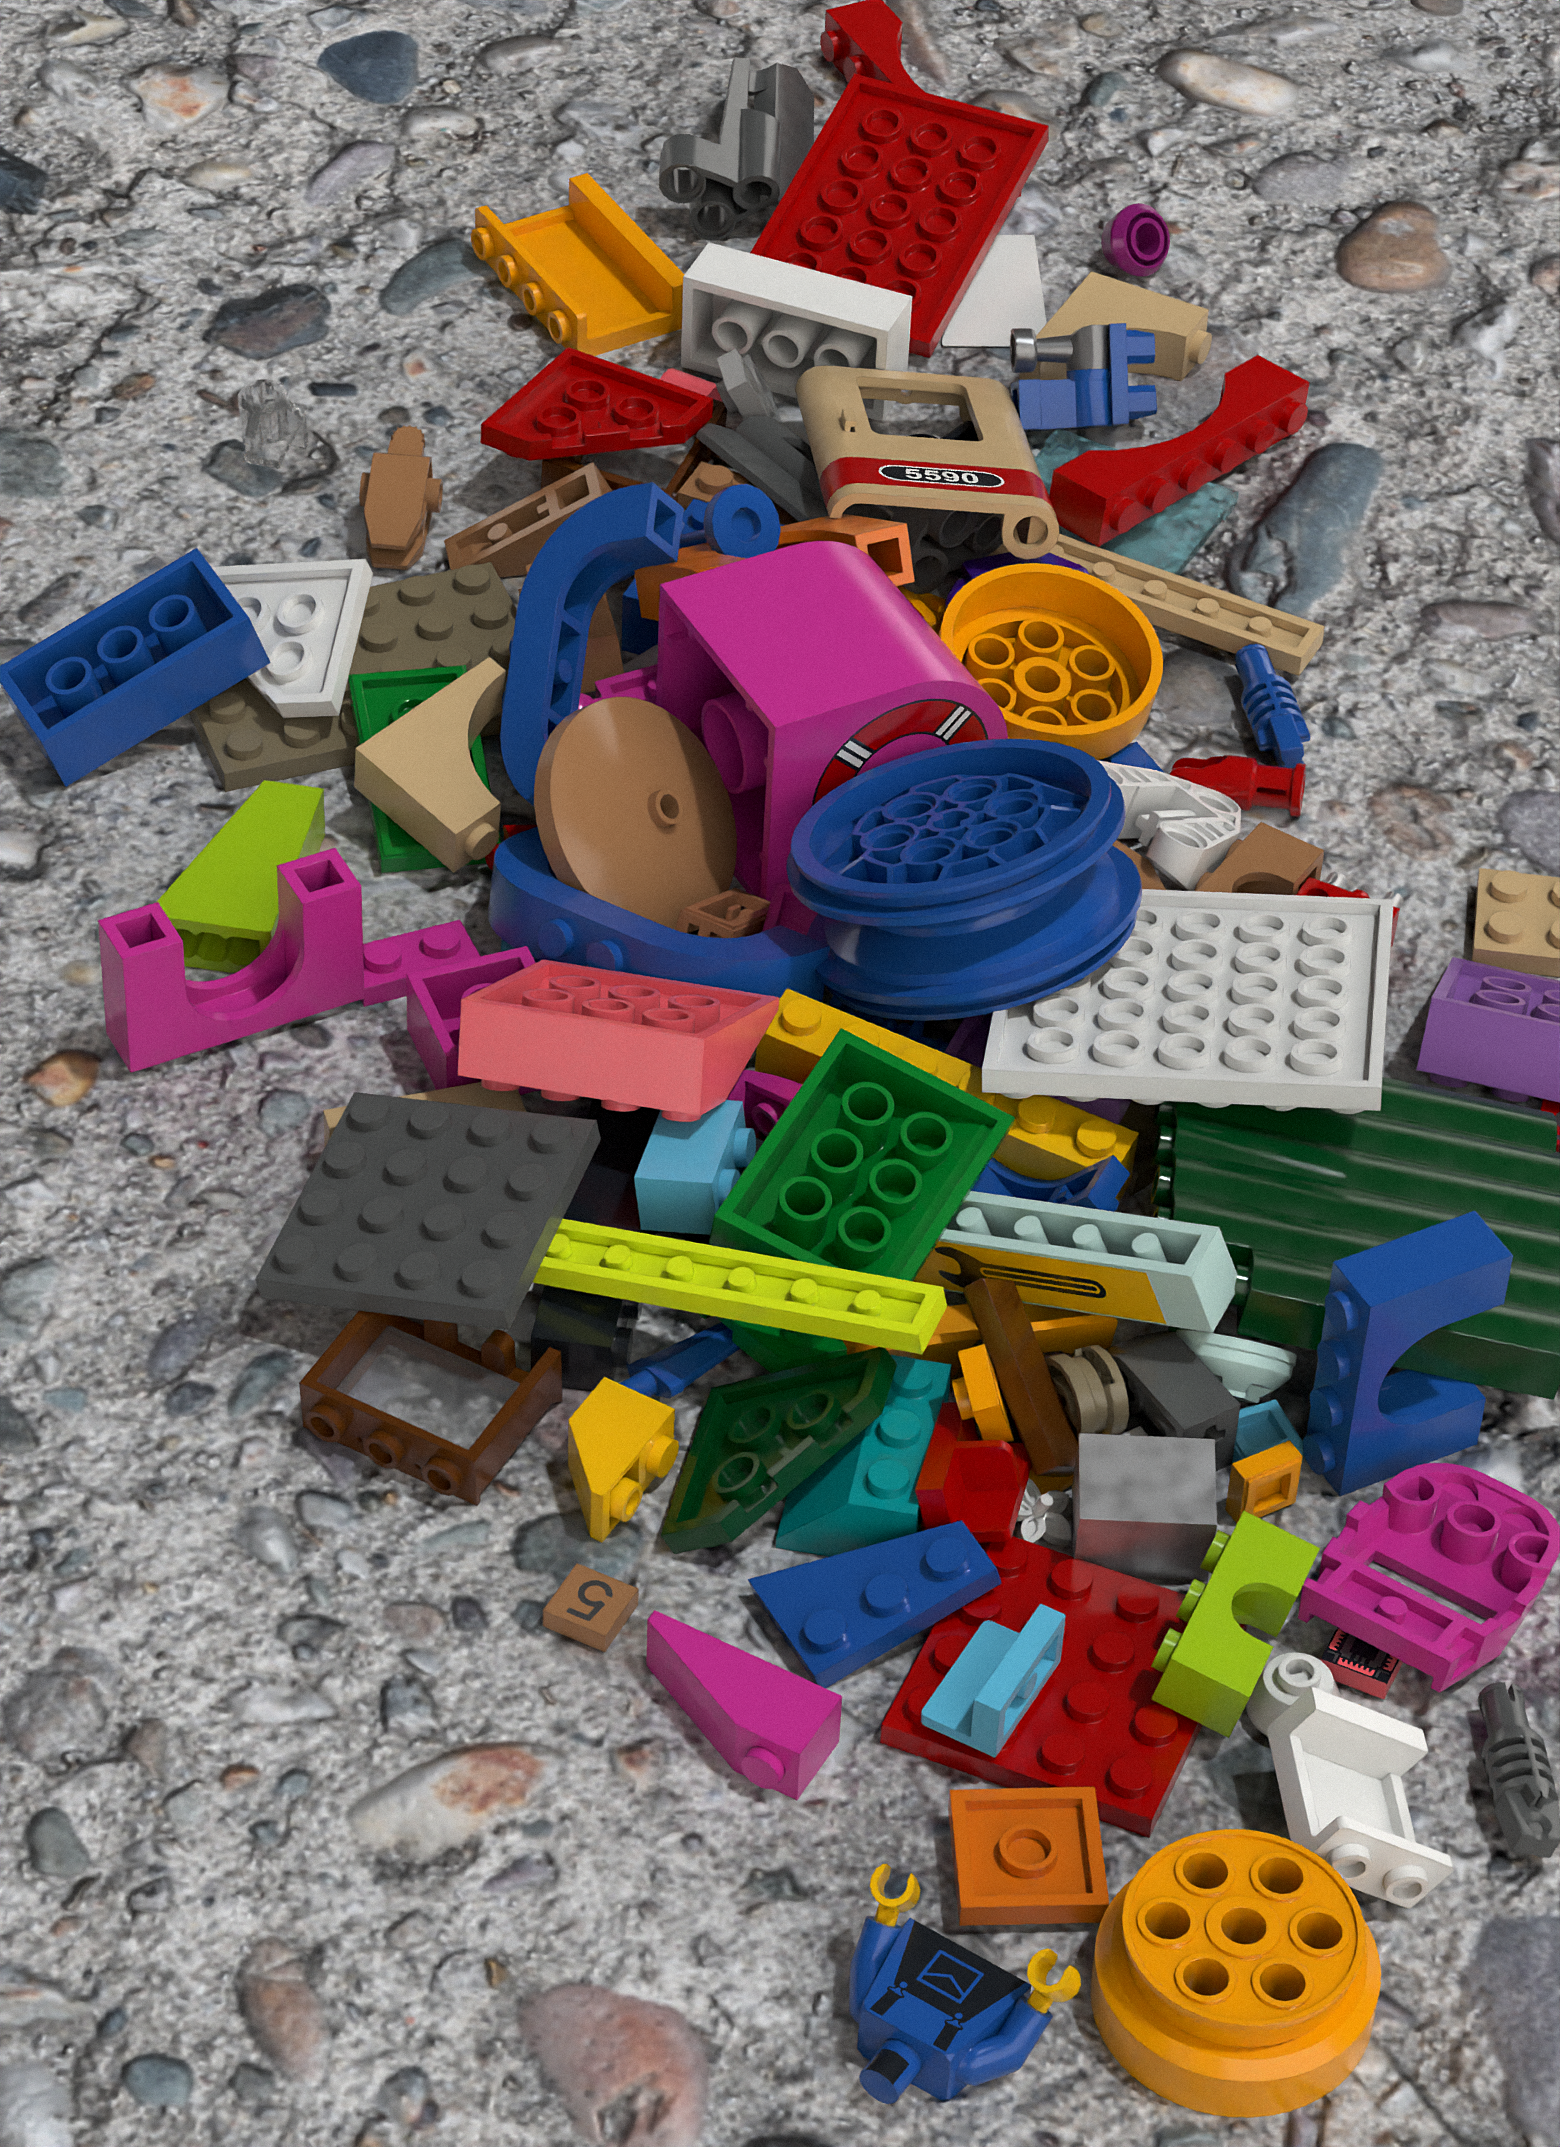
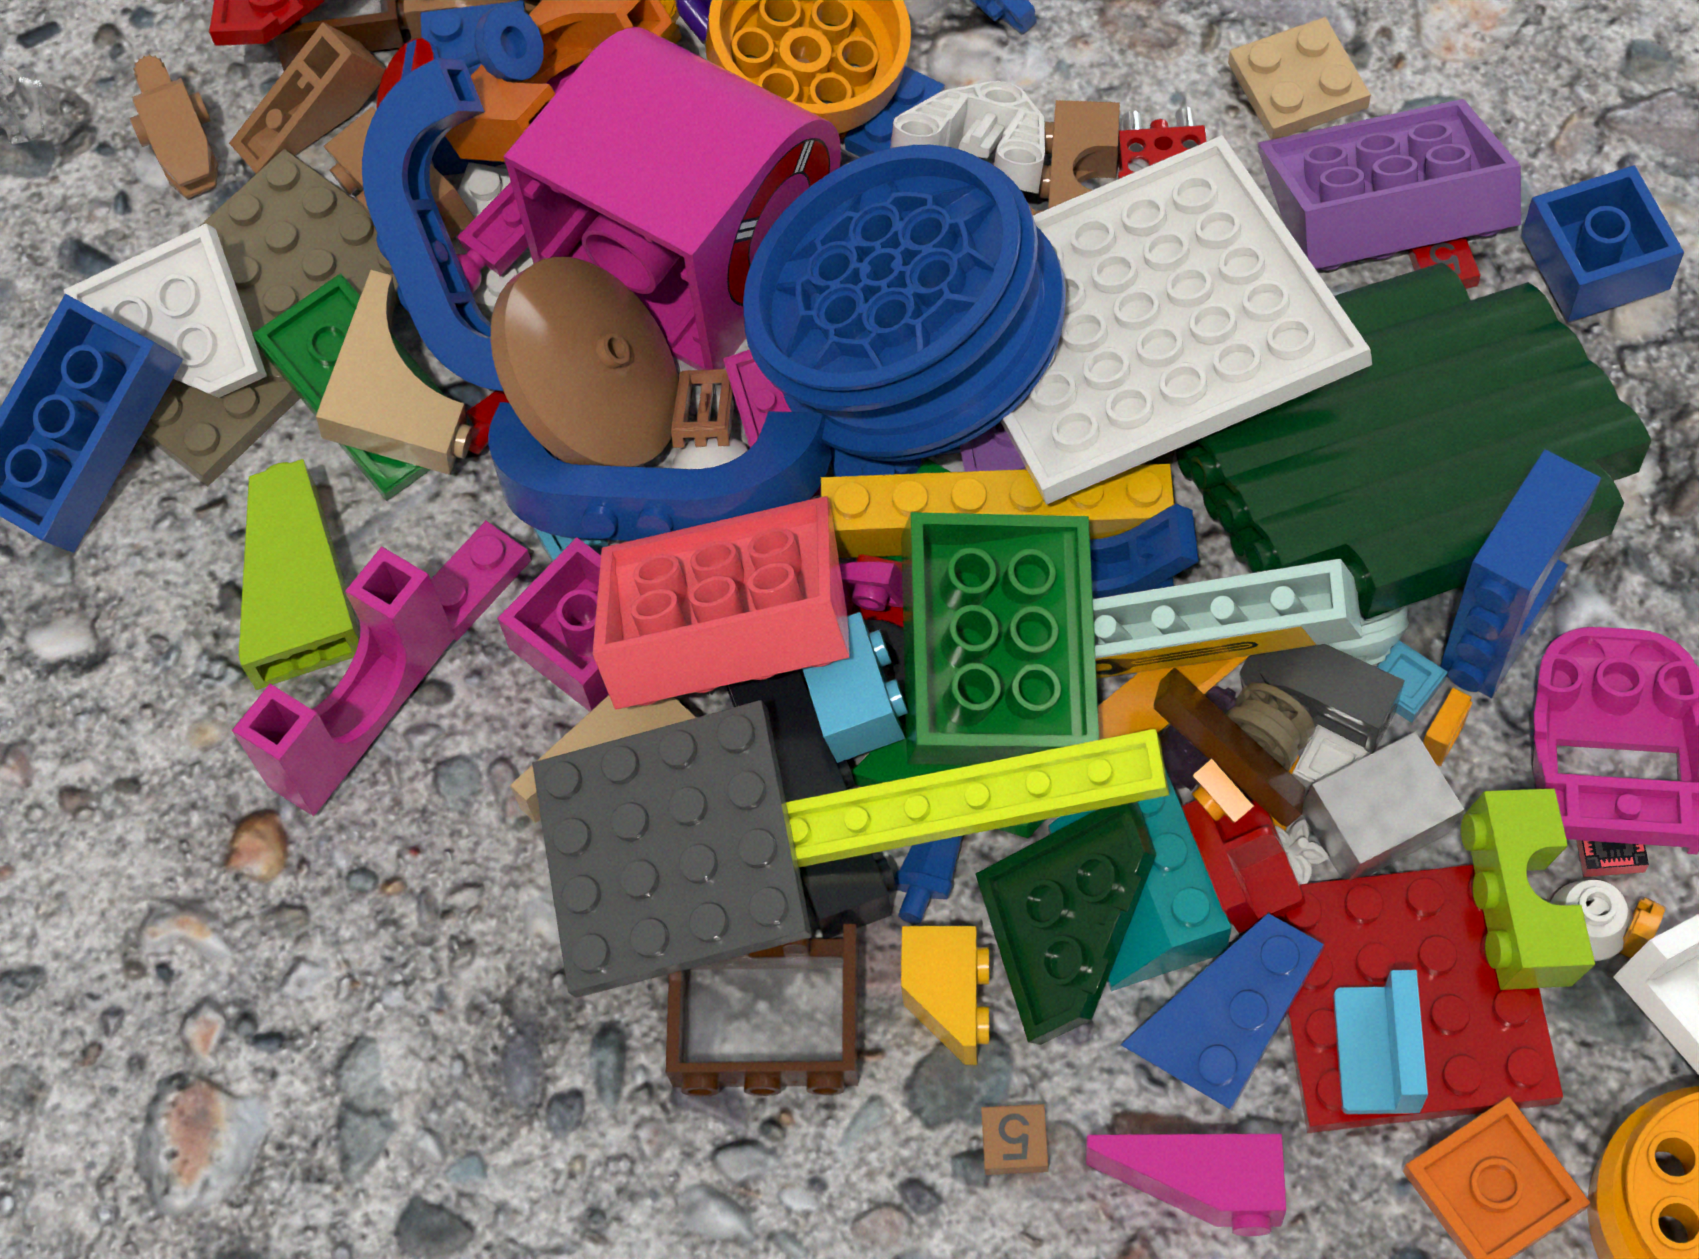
camera: 20 degrees left, 20 degrees up
(1247, 781) = (1005, 59): red piece -> none

